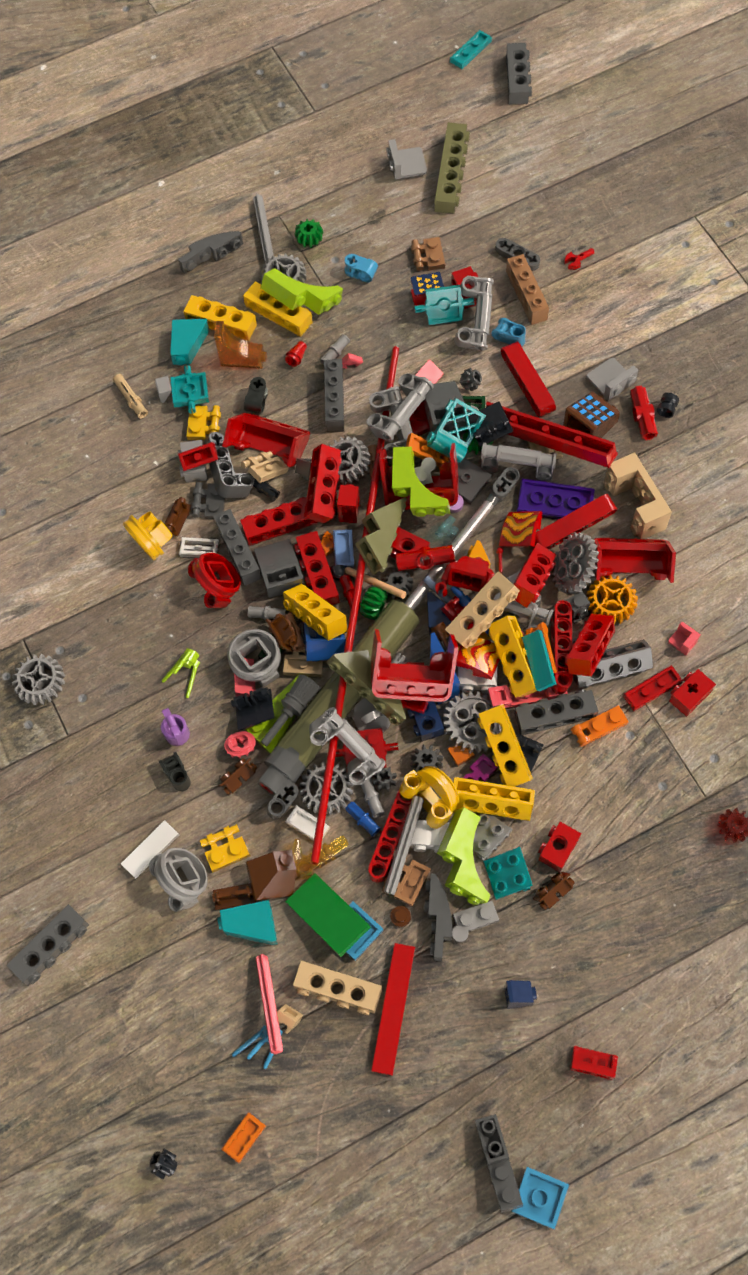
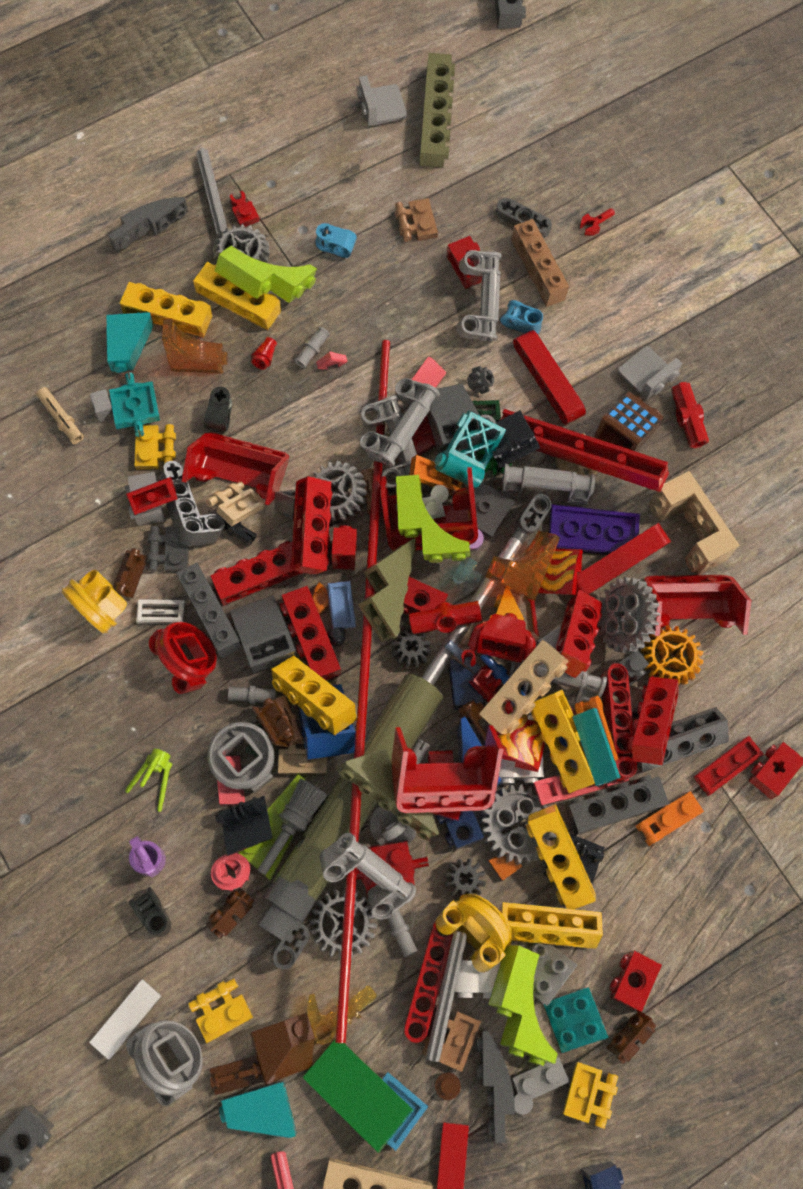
camera: 15 degrees left, 5 degrees up
(288, 244) = (244, 211): none -> red plate
(304, 822) = (319, 970): white tile -> none
(309, 233) = (268, 197): green gear -> none
(334, 395) = (315, 406): dark grey brick -> none
(348, 588) = (352, 658): red axle -> none
(362, 818) = (391, 959): blue axle -> none
(373, 603) = (384, 676): green gear -> none
(377, 583) = (388, 651): light nougat bar -> none
(387, 783) = (418, 912): dark grey gear -> none
(424, 282) = (420, 267): piece -> none
(444, 304) = (442, 285): teal plate -> none
(481, 769) = (532, 886): magenta plate -> none
(495, 527) = (527, 570): none -> clear orange arch
(509, 929) = (582, 1094): none -> yellow plate
(667, 405) = (717, 404): black wheel -> none
(684, 638) = (761, 701): coral panel -> none

